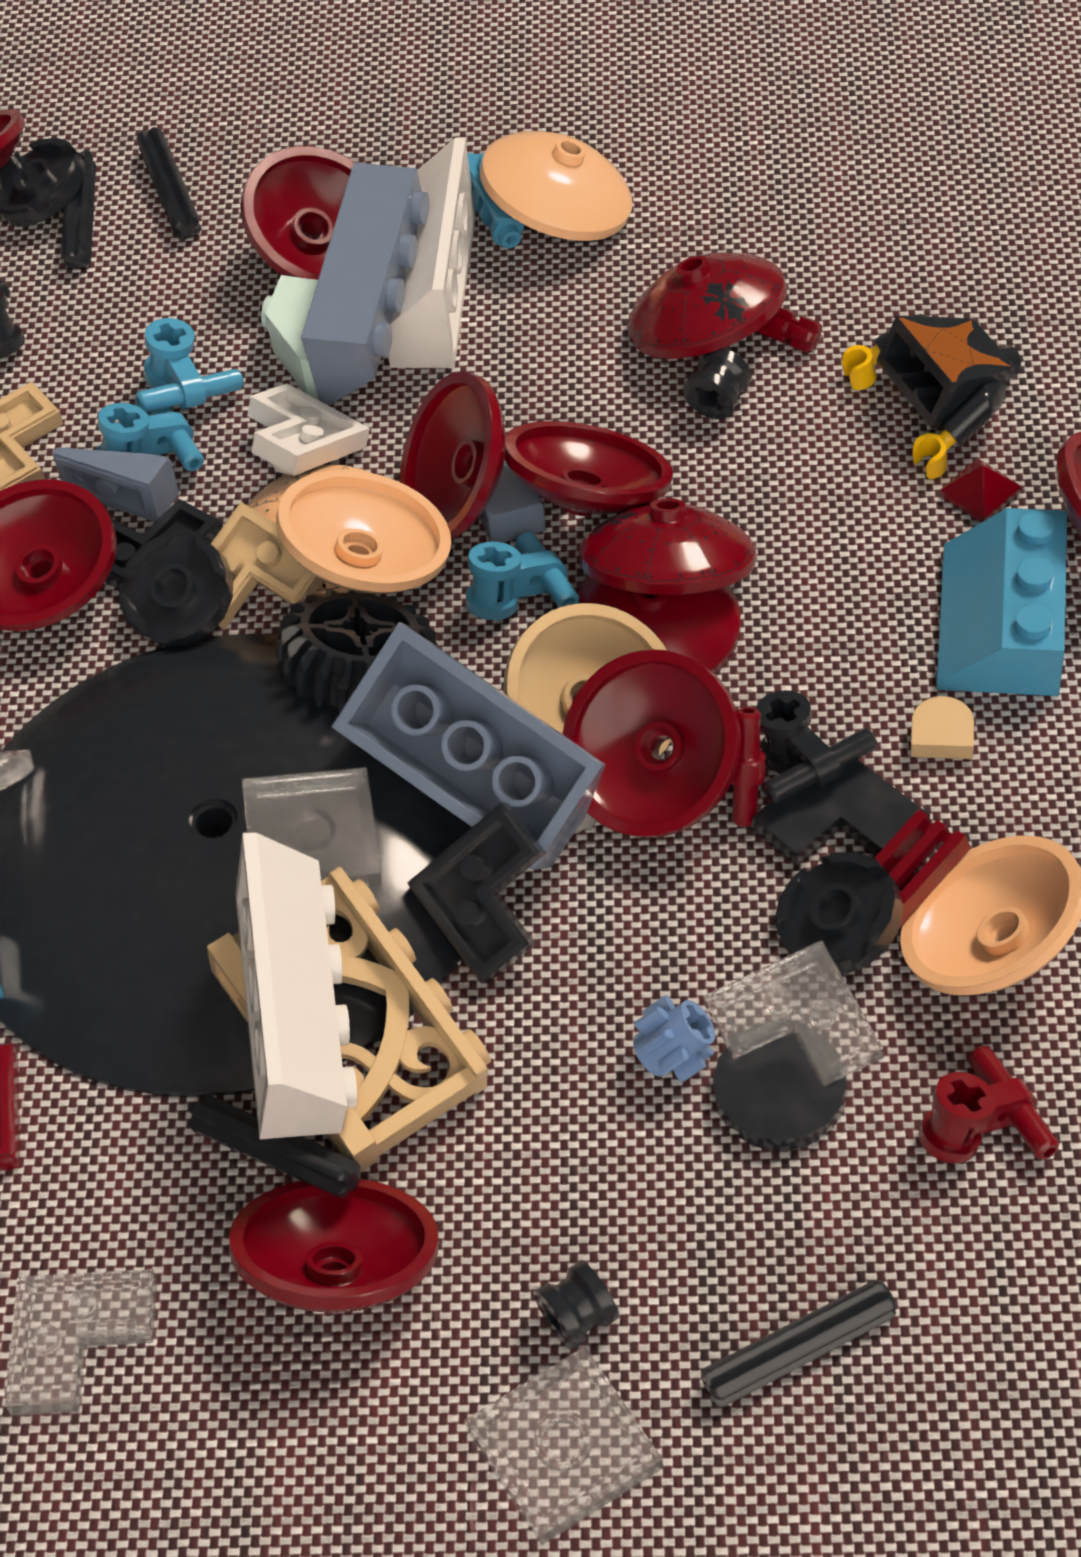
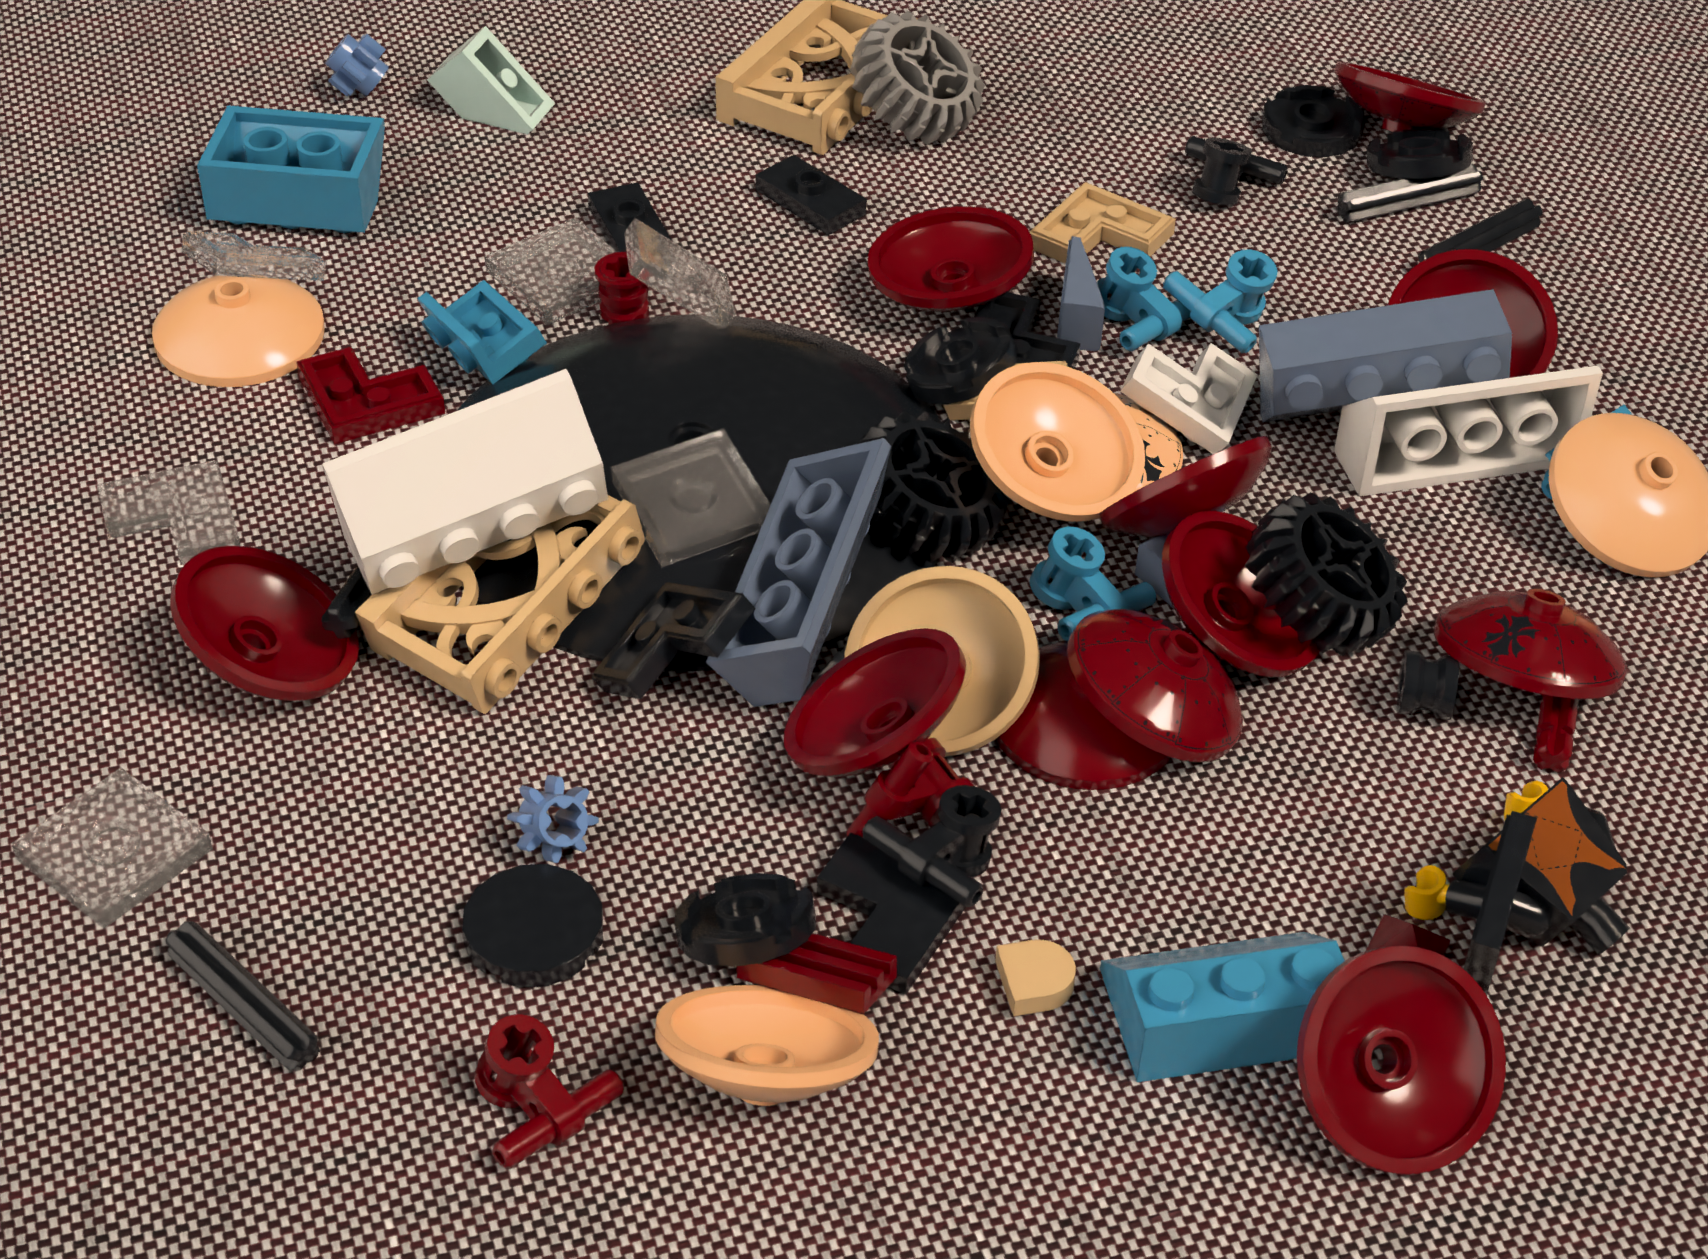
camera: 65 degrees right, 10 degrees down
(576, 1304) = (245, 813): black wheel -> none
(586, 401) = (1326, 574): none -> black gear
(801, 997) = (615, 905): clear tile -> none
(1024, 399) = (1499, 898): none -> black tile

